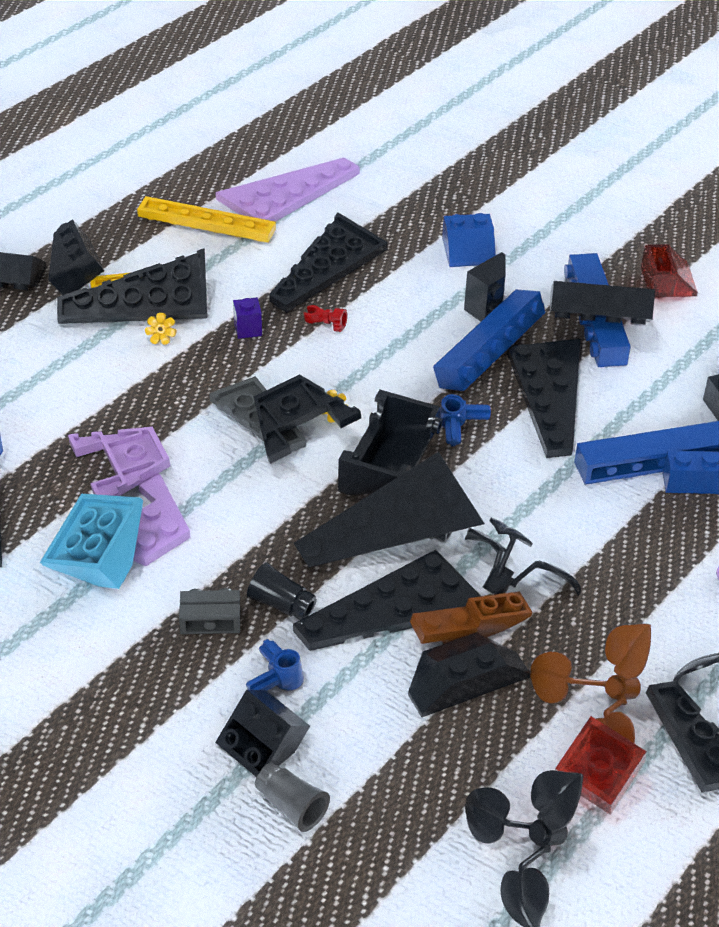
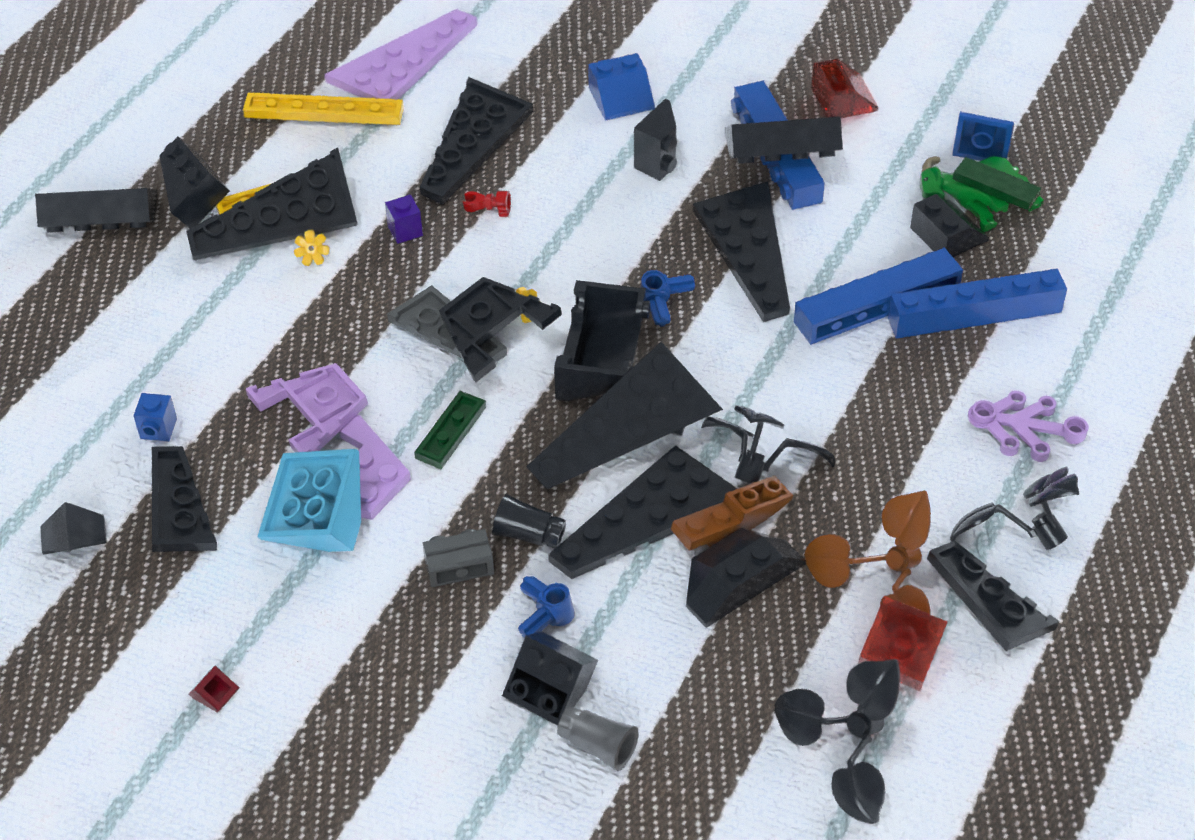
camera: 10 degrees left, 5 degrees up
(237, 501) = (450, 429): none -> dark green tile
(489, 340) = (672, 200): blue brick -> none

